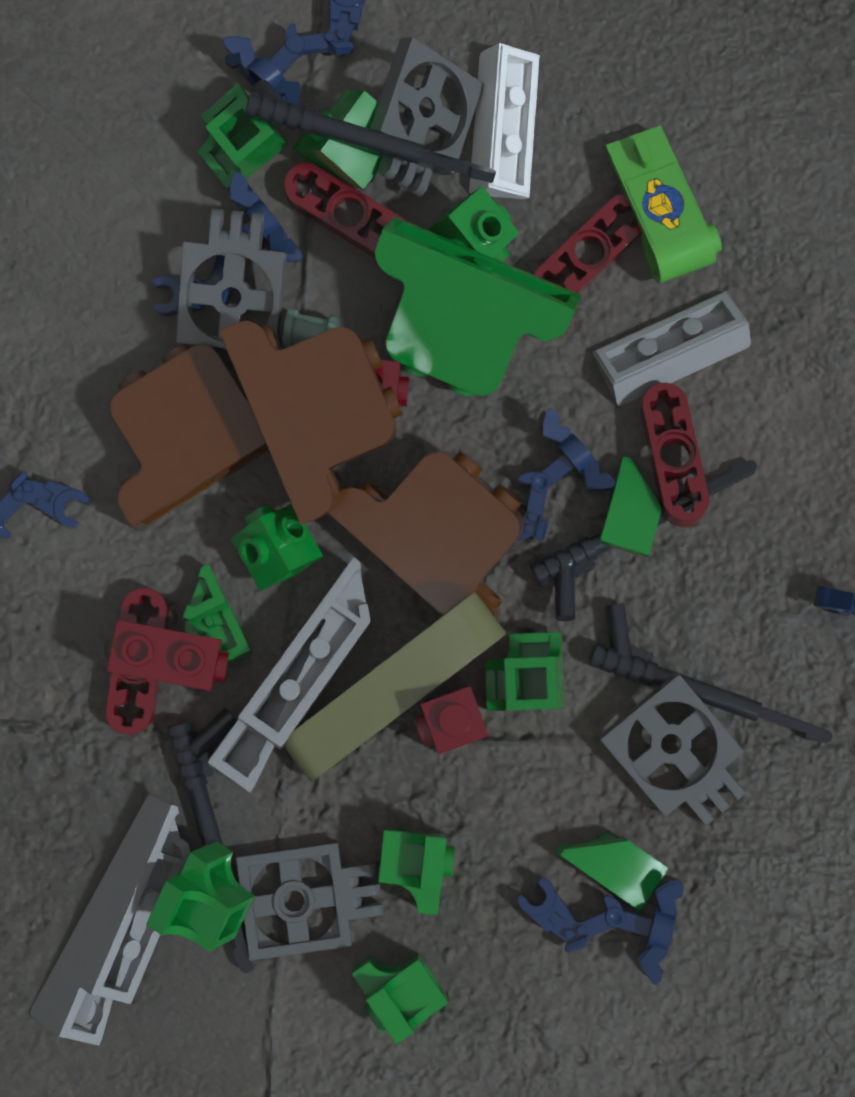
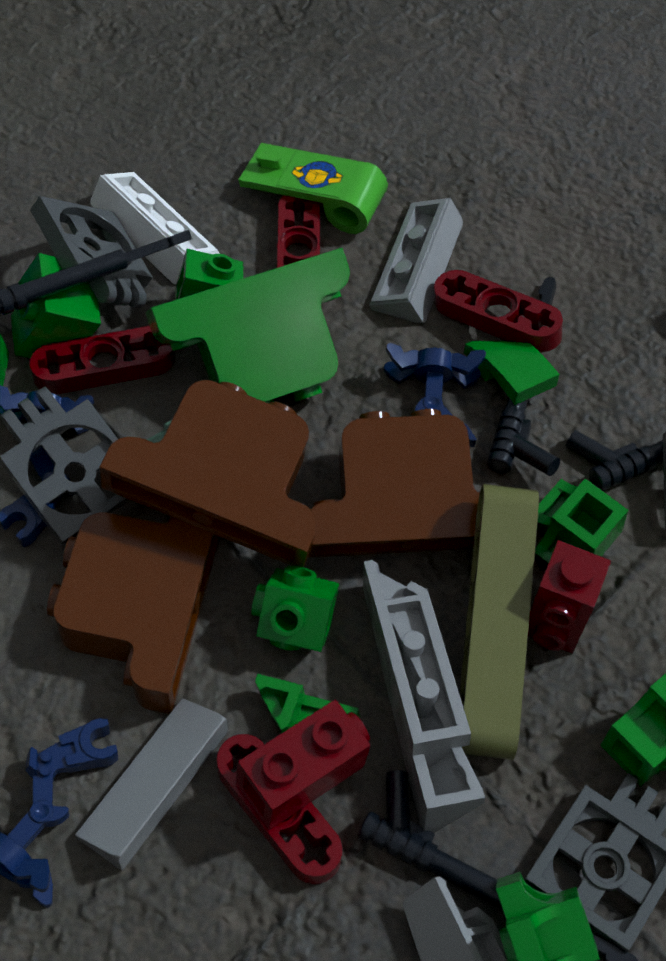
camera: 45 degrees left, 25 degrees down
(80, 566) = (152, 782): none -> light grey slope

